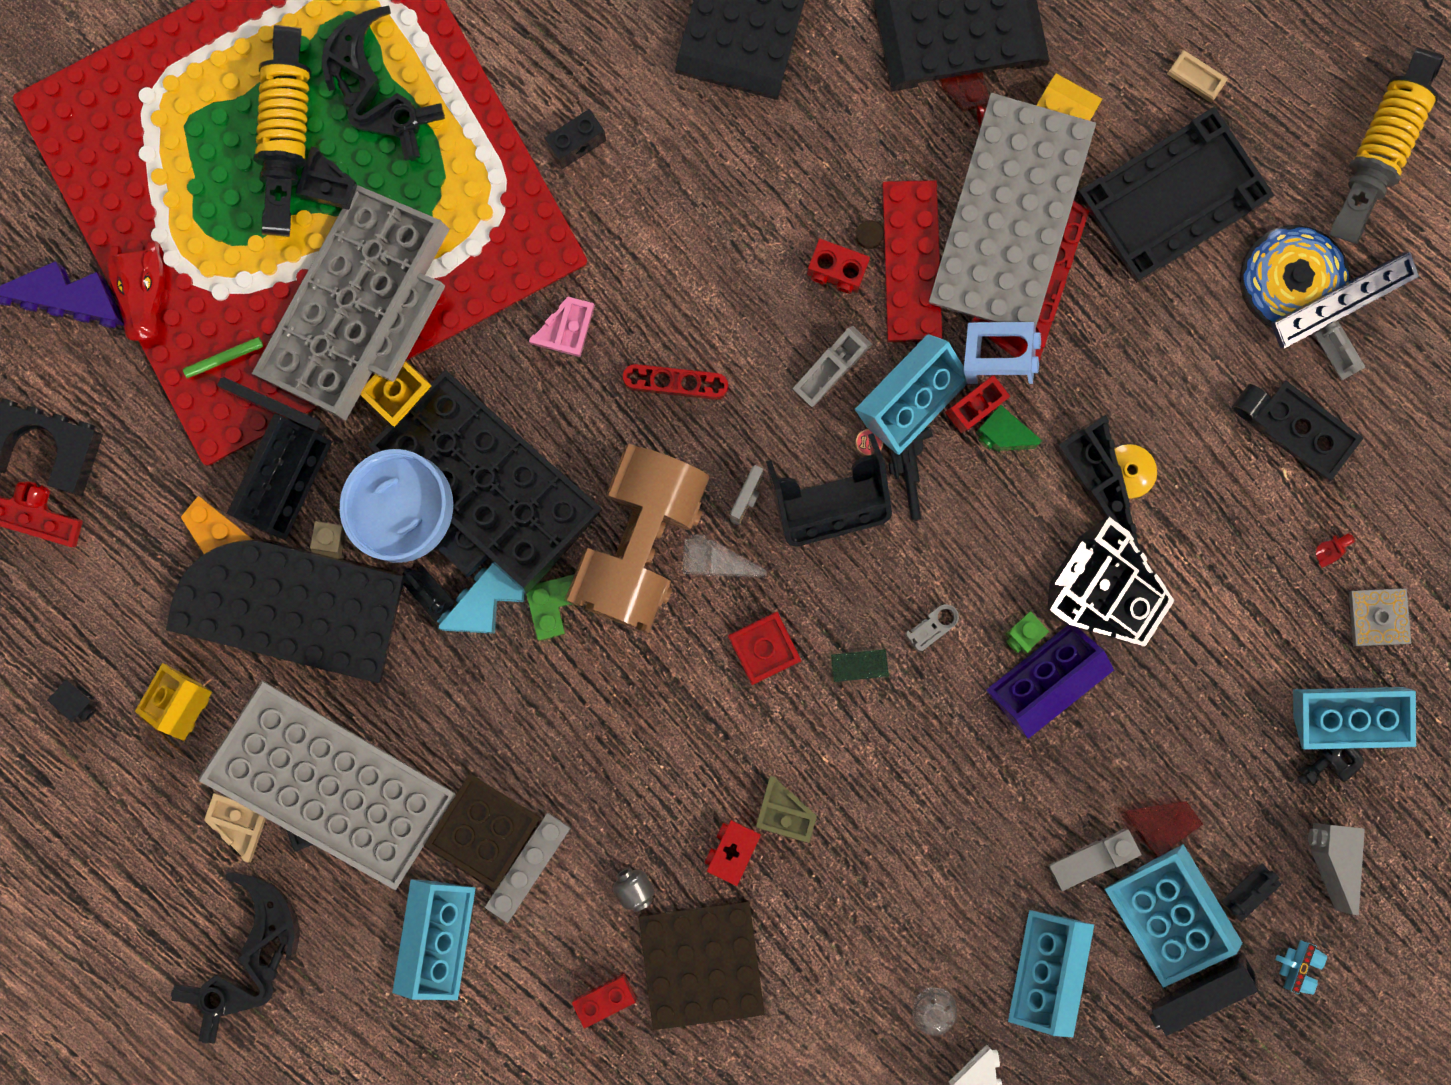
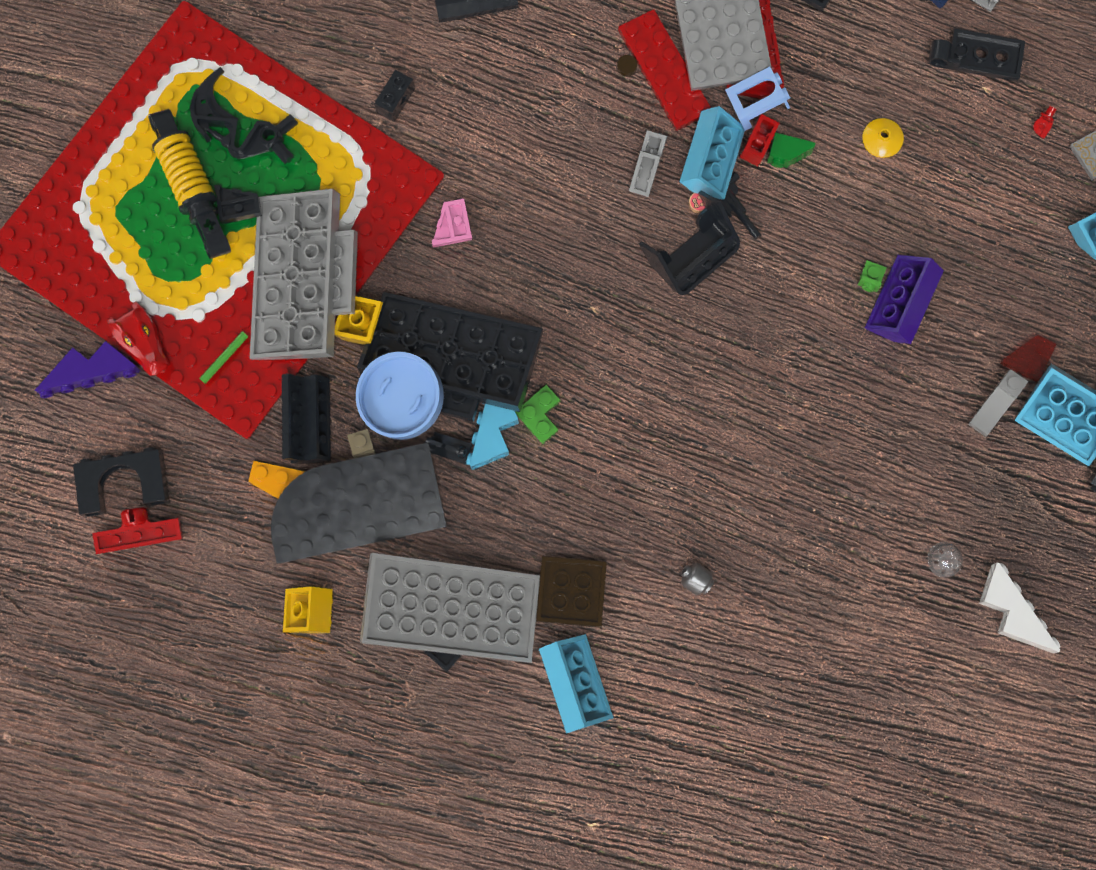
camera: 25 degrees left, 5 degrees down
(74, 701) = (237, 645): black brick -> none
(233, 994) = (456, 793): black piece -> none
(235, 824) = (395, 672): tan wing -> none
(271, 405) = (273, 372): black tile -> none
(527, 867) = (615, 602): light grey plate -> none
(604, 1001) = (716, 664): red brick -> none
(658, 493) = (577, 300): medium nougat cylinder -> none
(676, 377) = (544, 221): red beam -> none
(701, 965) = (769, 608): dark brown plate -> none
(713, 559) = (635, 329): clear slope -> none
(732, 869) = (757, 509): red brick -> none
(747, 496) = (637, 274): light grey plate -> none
(764, 648) = (700, 372): red plate -> none
(784, 813) = (773, 477): olive wing -> none
(841, 259) = (616, 90): red brick -> none
(859, 665) = (771, 353): clear green tile -> none
(930, 630) = (806, 304): light grey piece -> none
(1051, 974) = (1009, 493): medium azure slope -> none
(1094, 464) = (857, 143): black wedge -> none
(1109, 586) = (910, 216): black wedge -> none

